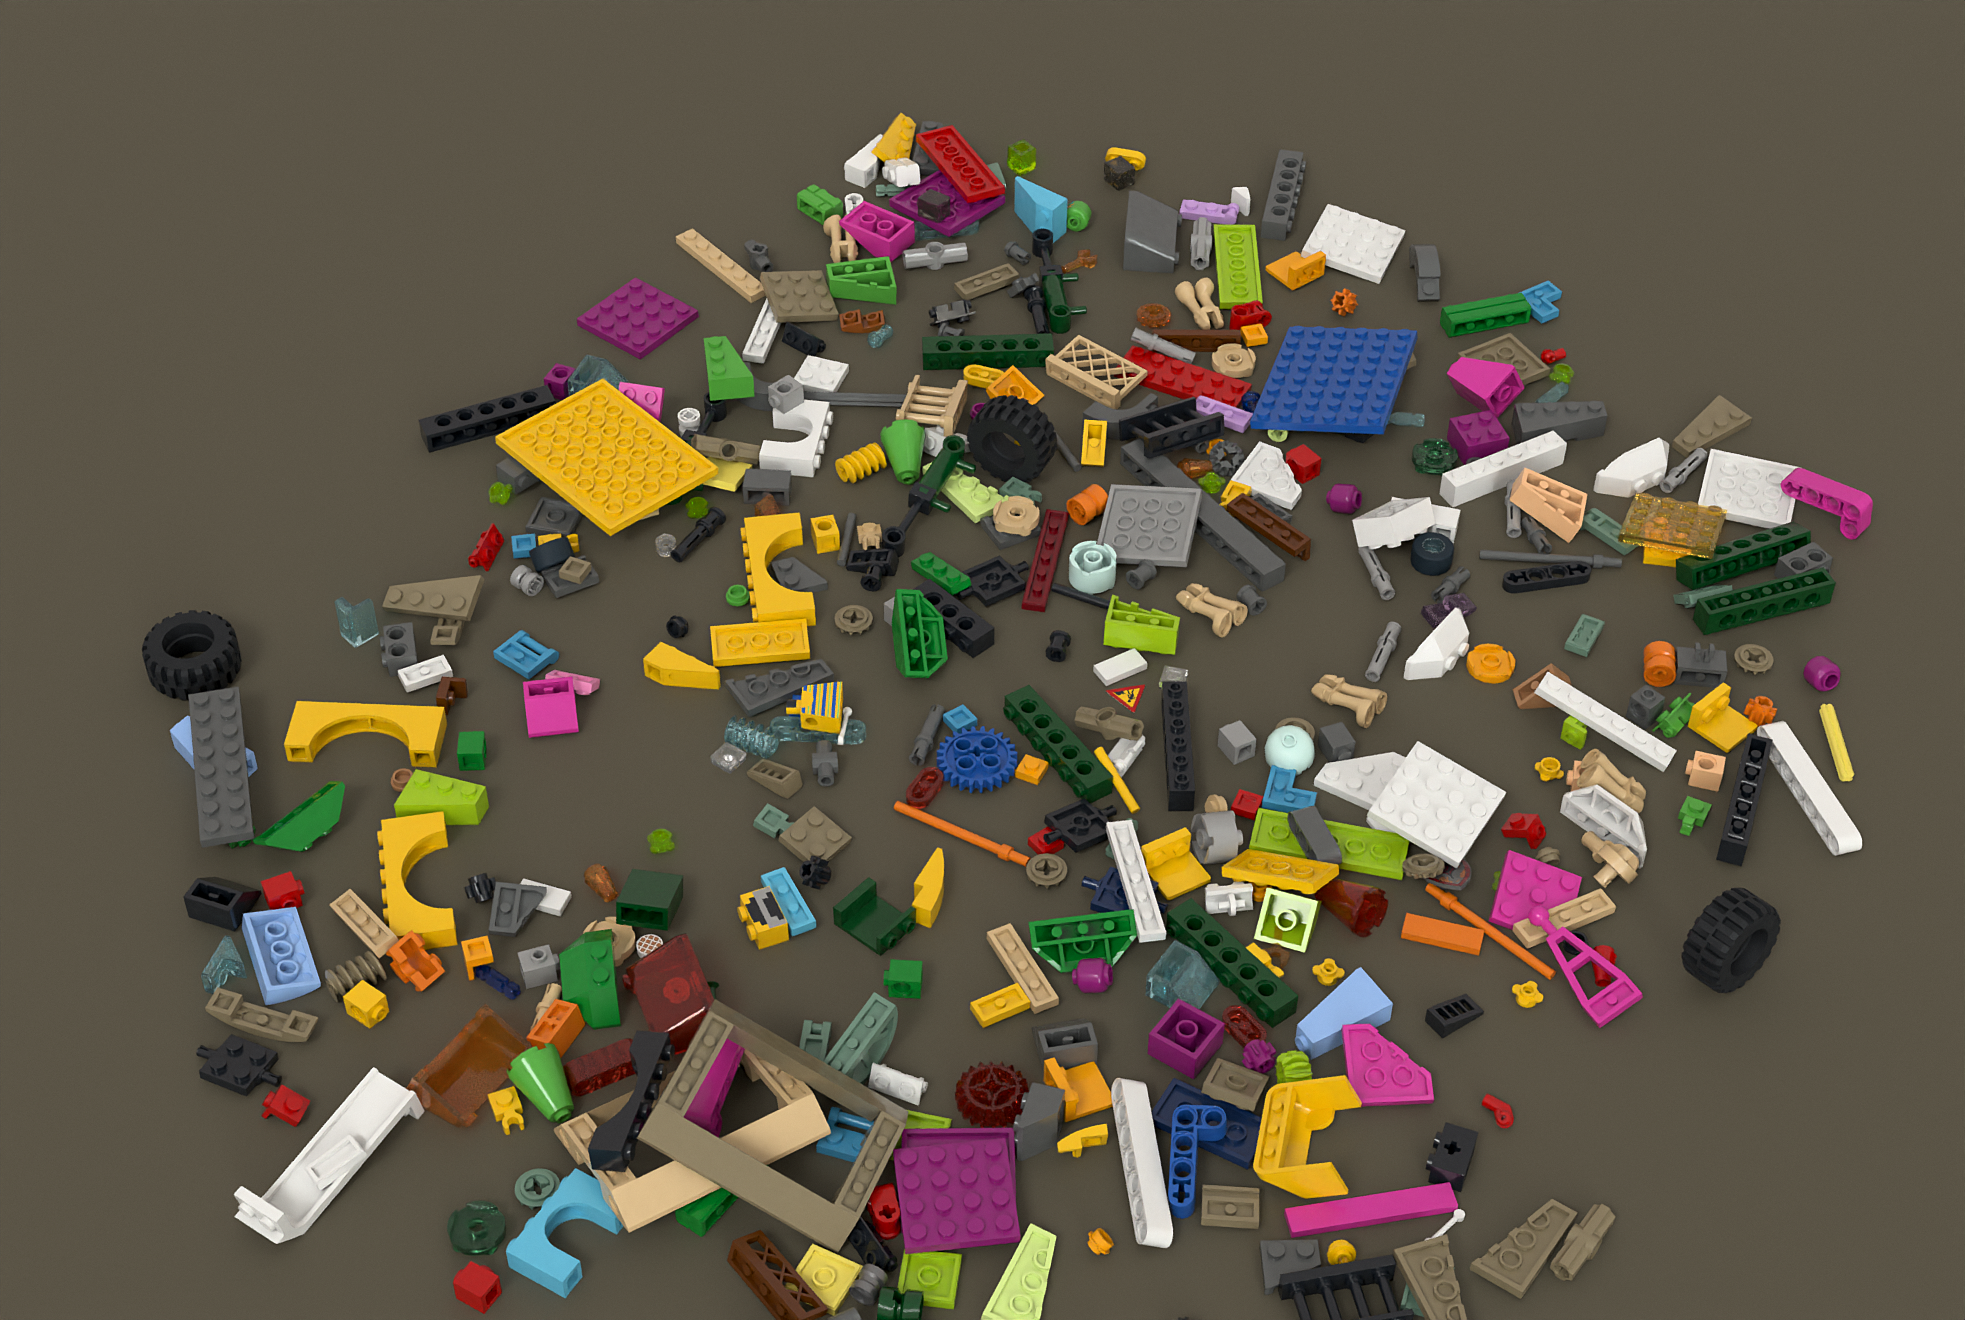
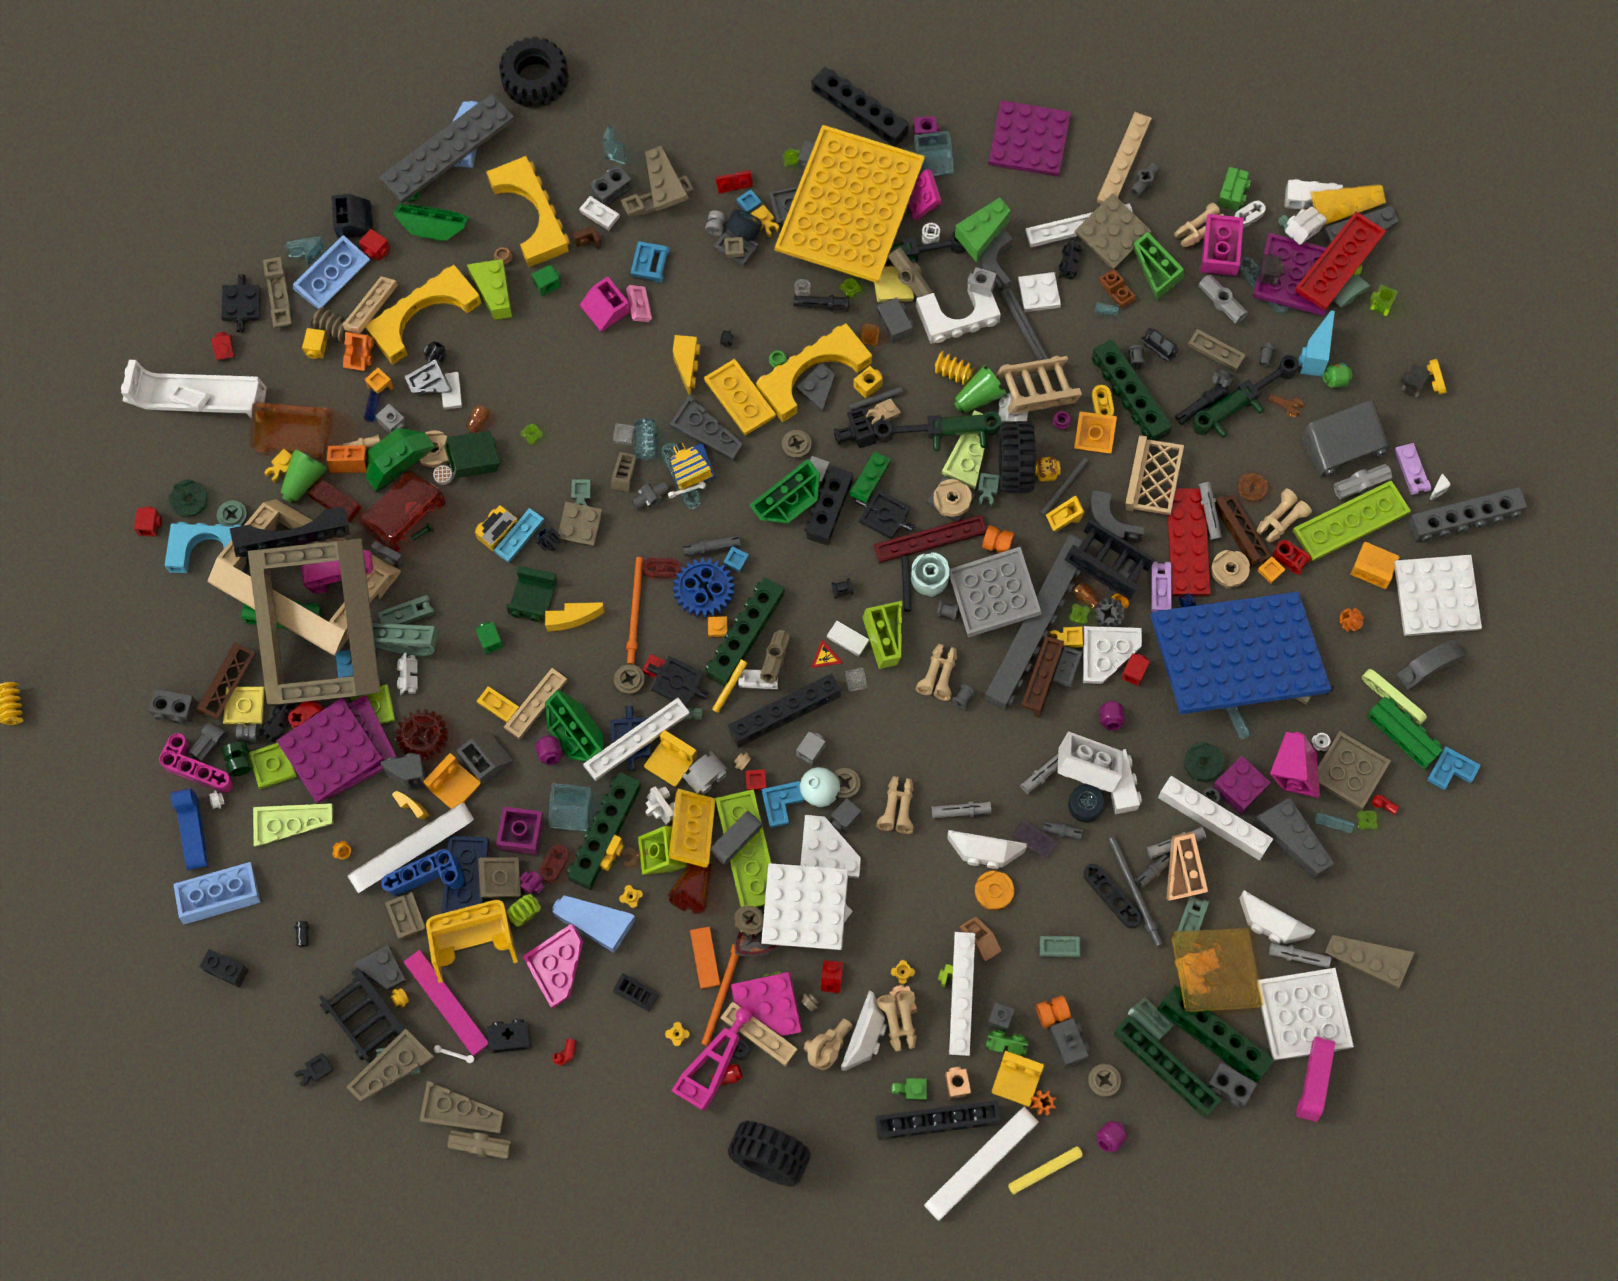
camera: 65 degrees right, 25 degrees up
(1419, 312) = (1386, 690): none -> yellowish green beam

